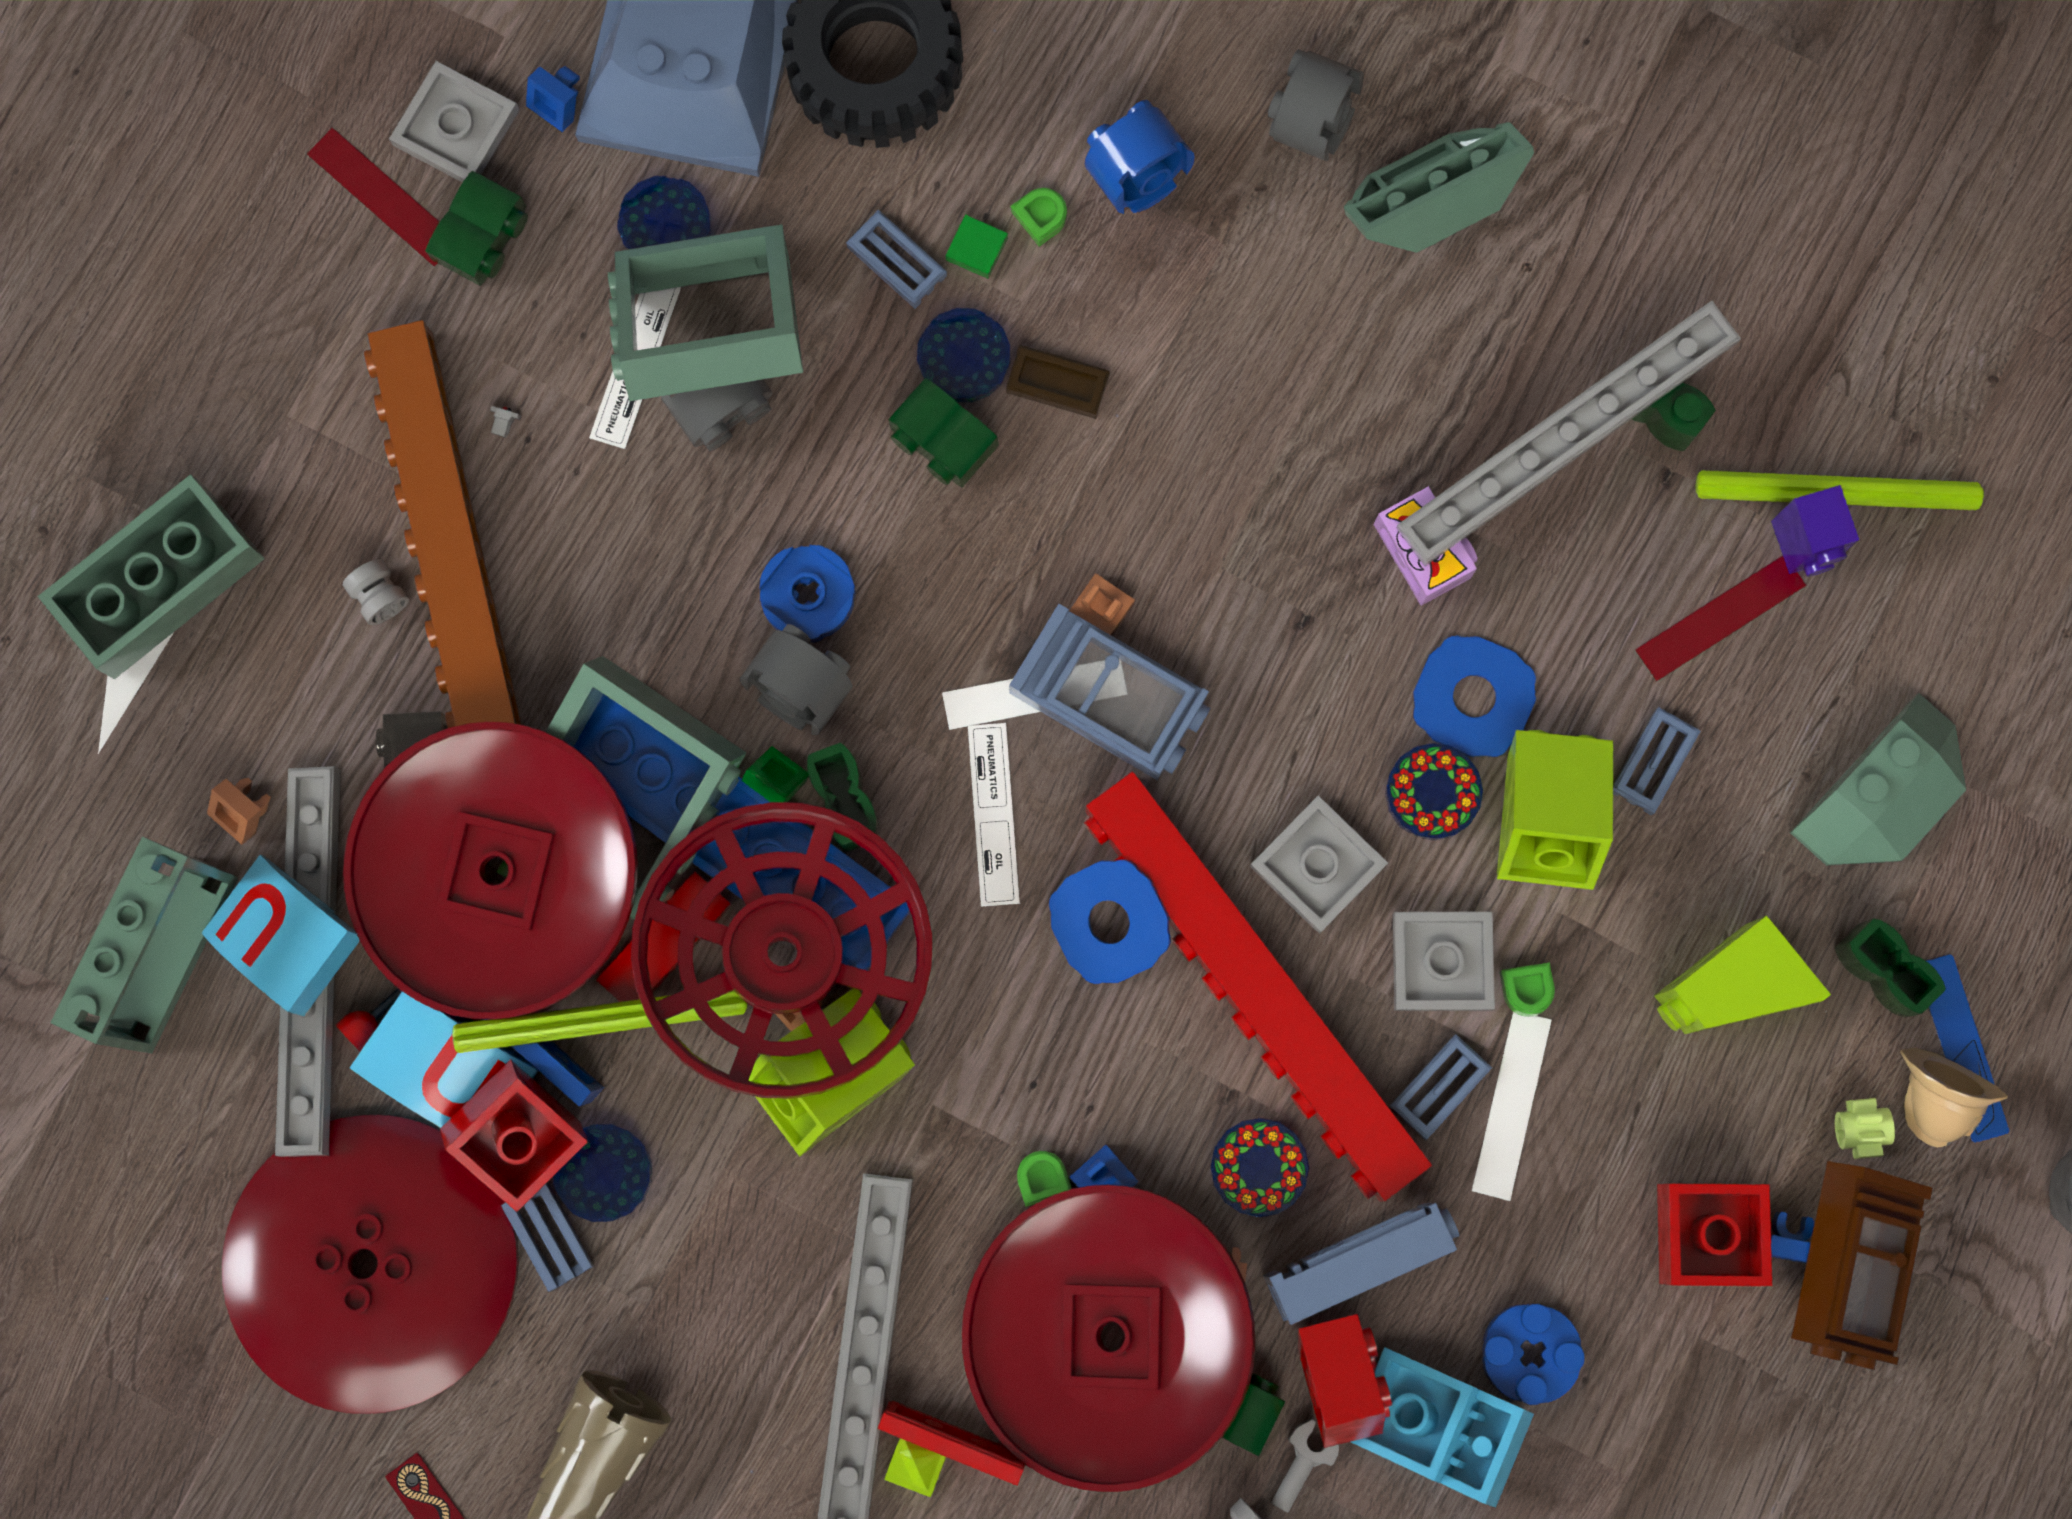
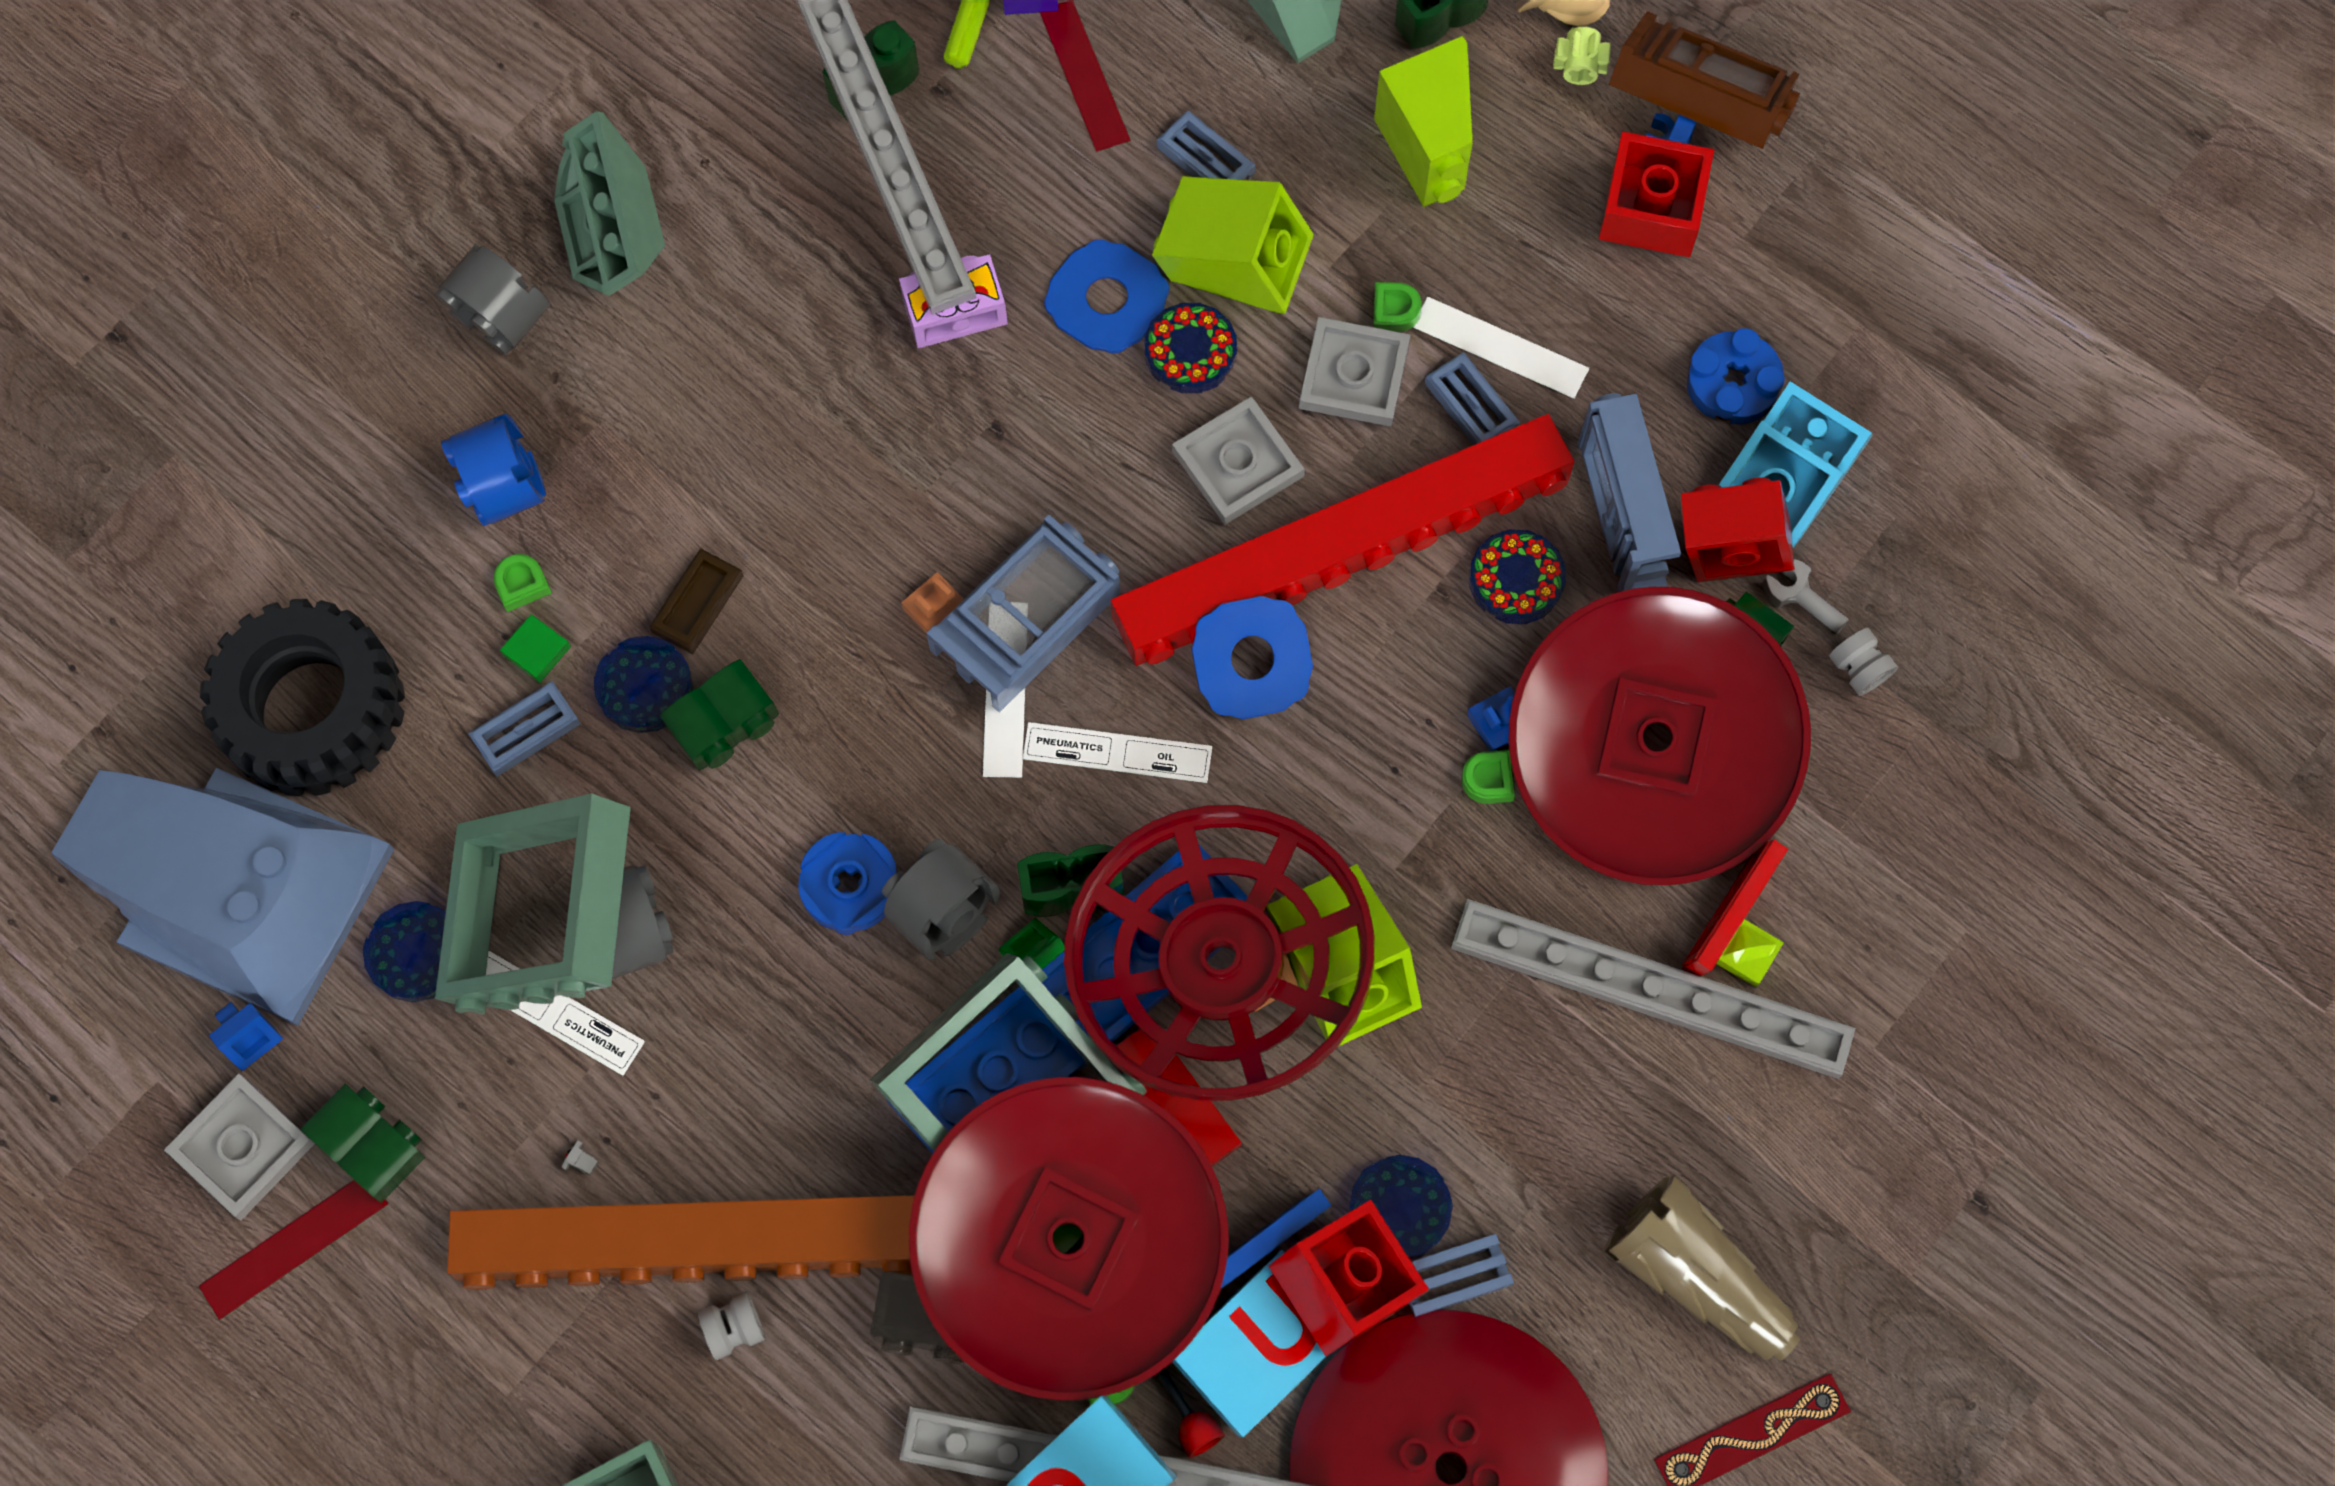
camera: 80 degrees left, 10 degrees down
(574, 1023) = (1244, 1196): lime axle -> none

